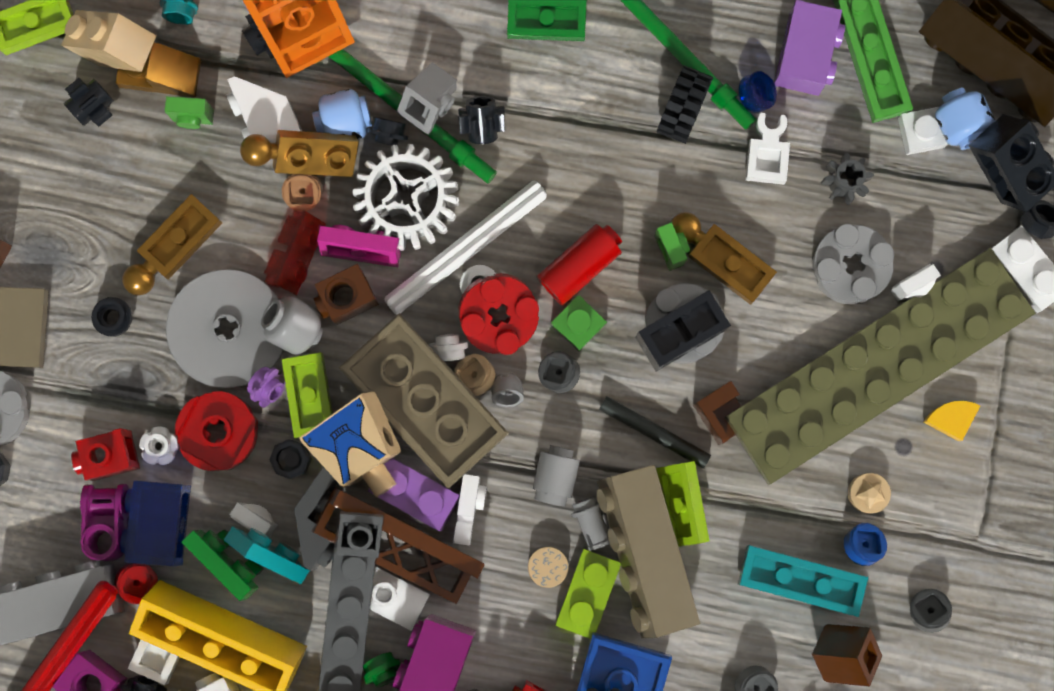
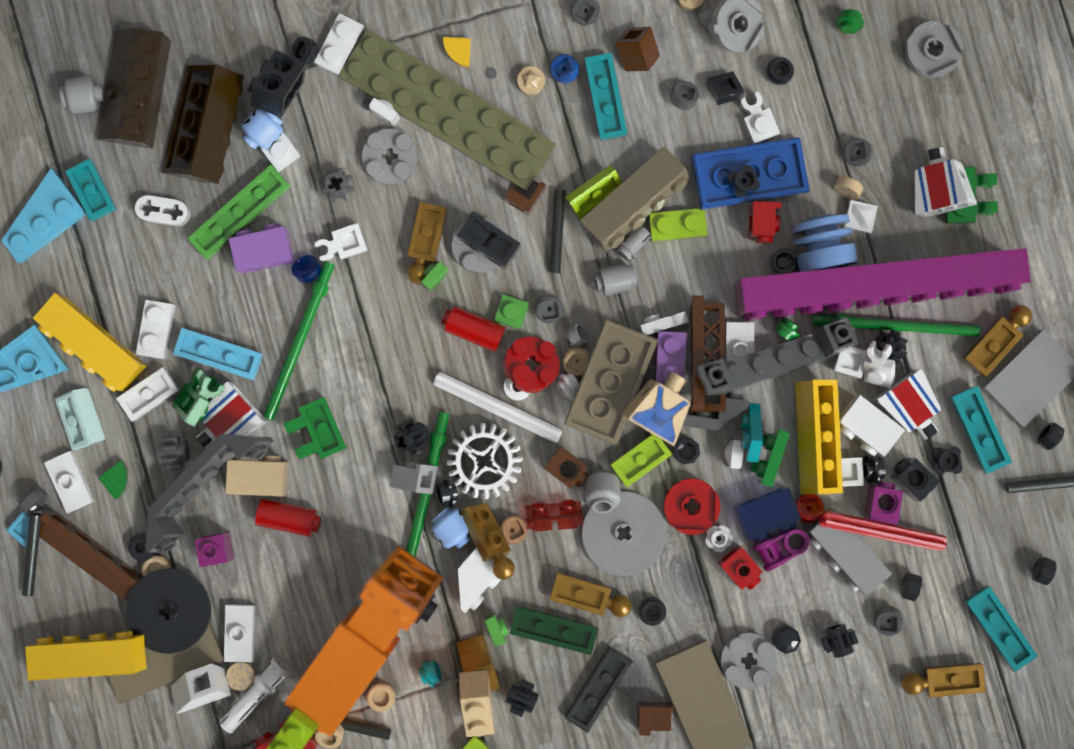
camera: 120 degrees left, 5 degrees up
(52, 204) = (598, 689): none -> pearl dark grey tile
(152, 182) = (553, 630): none -> dark green plate
(266, 386) = (648, 489): medium lavender plate -> none
(349, 244) = (532, 485): dark pink plate -> none
(548, 567) = (673, 257): tan tile -> none
(684, 104) = (339, 310): black tyre -> none

